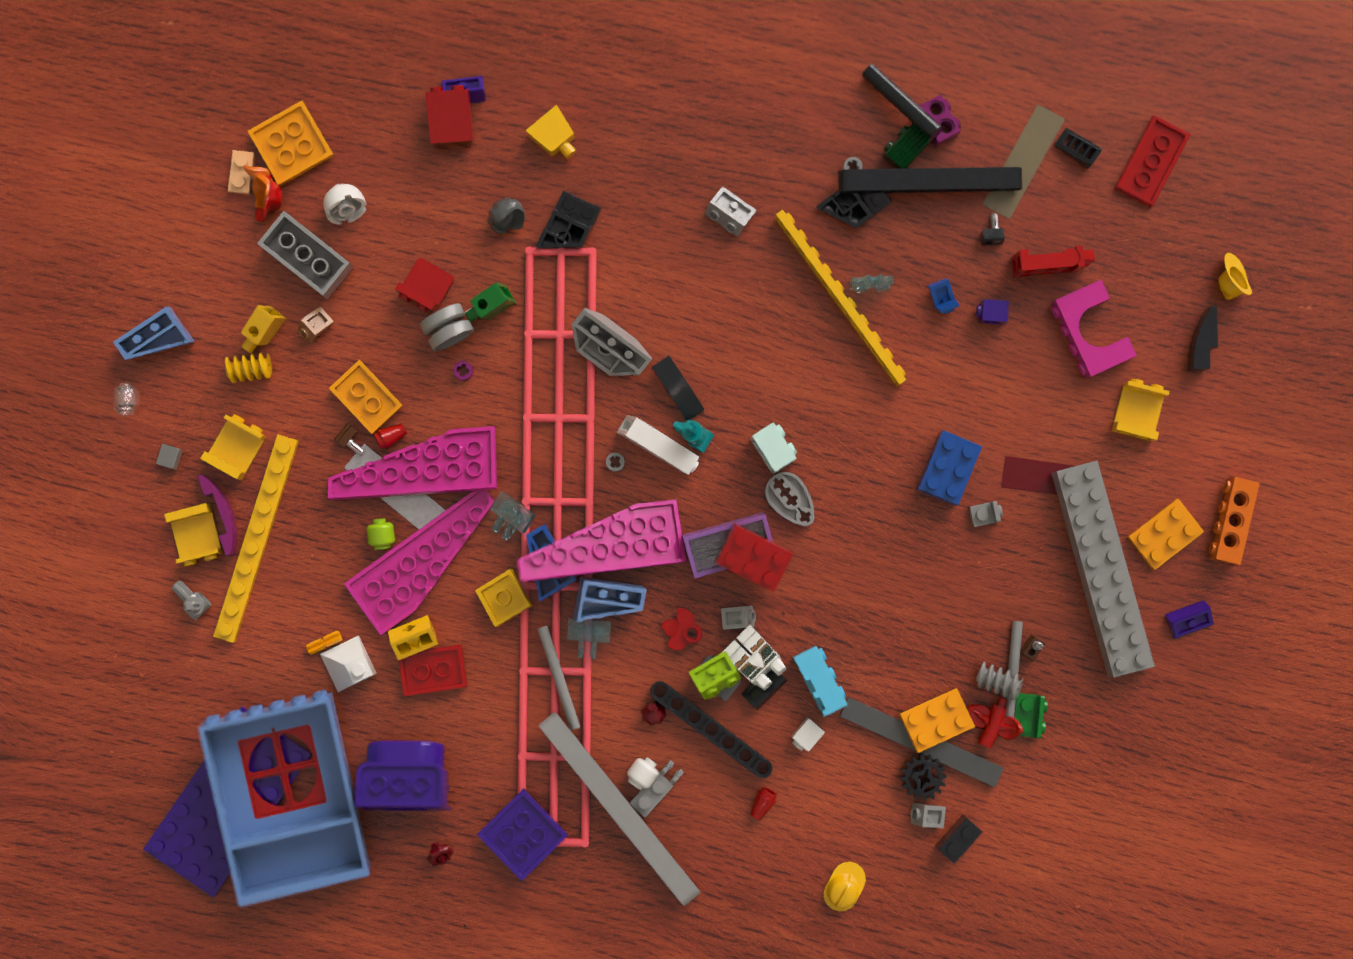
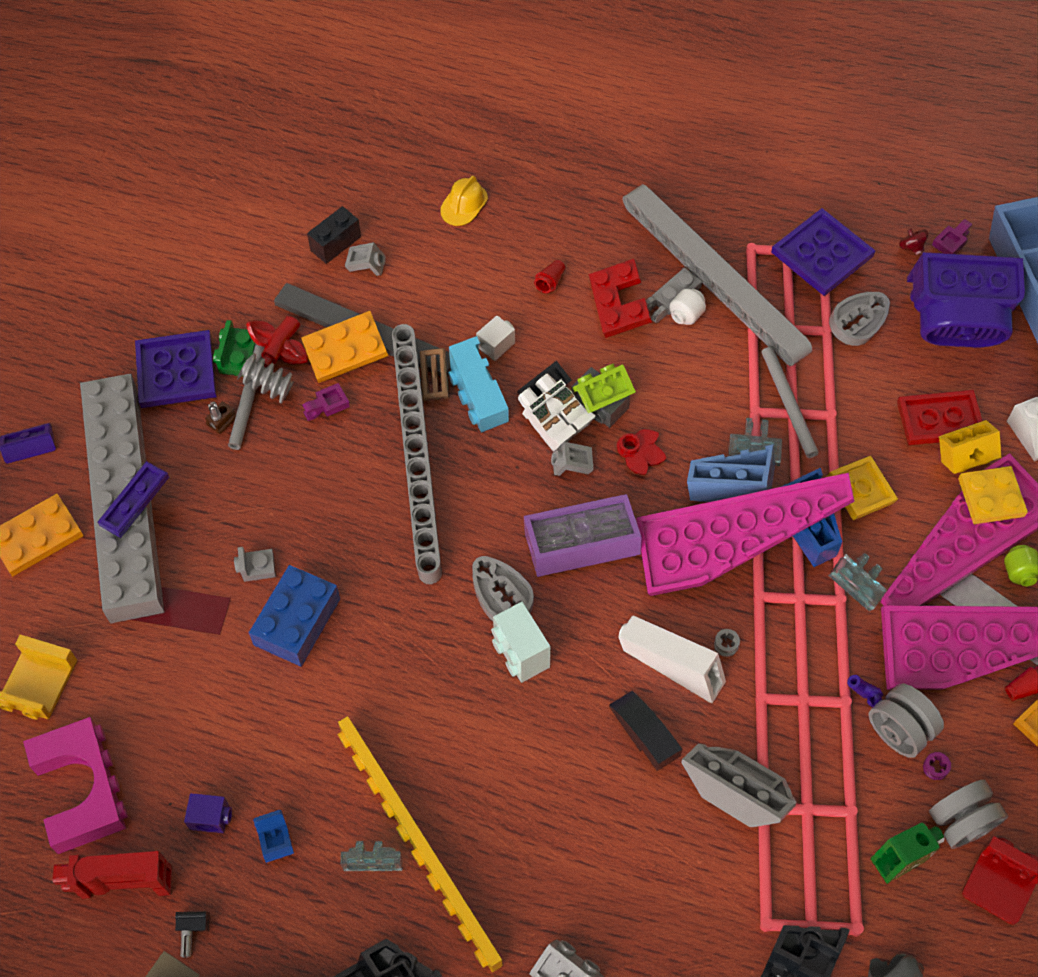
camera: 170 degrees left, 25 degrees down
(399, 593) = (992, 495): none -> yellow plate
(406, 857) = (951, 239): none -> magenta plate
(485, 396) = (906, 720): none -> light grey wheel
(488, 758) = (855, 306): none -> light grey piece
(515, 428) = (865, 690): none -> dark purple arm
(653, 713) = (675, 365): dark red piece -> none
(695, 434) = (620, 666): teal piece -> none
(707, 763) = (612, 314): none -> red plate
(721, 733) = (575, 325): black beam -> none
(753, 557) = (553, 506): red brick -> none
(863, 628) = (416, 460): none -> light grey beam
(868, 712) = (444, 375): none -> medium nougat tile
(920, 786) = (365, 294): black gear -> none
(943, 666) = (328, 400): none -> magenta plate
(1078, 693) = (175, 369): none -> dark purple plate
(1089, 553) = (133, 499): none -> dark purple tile

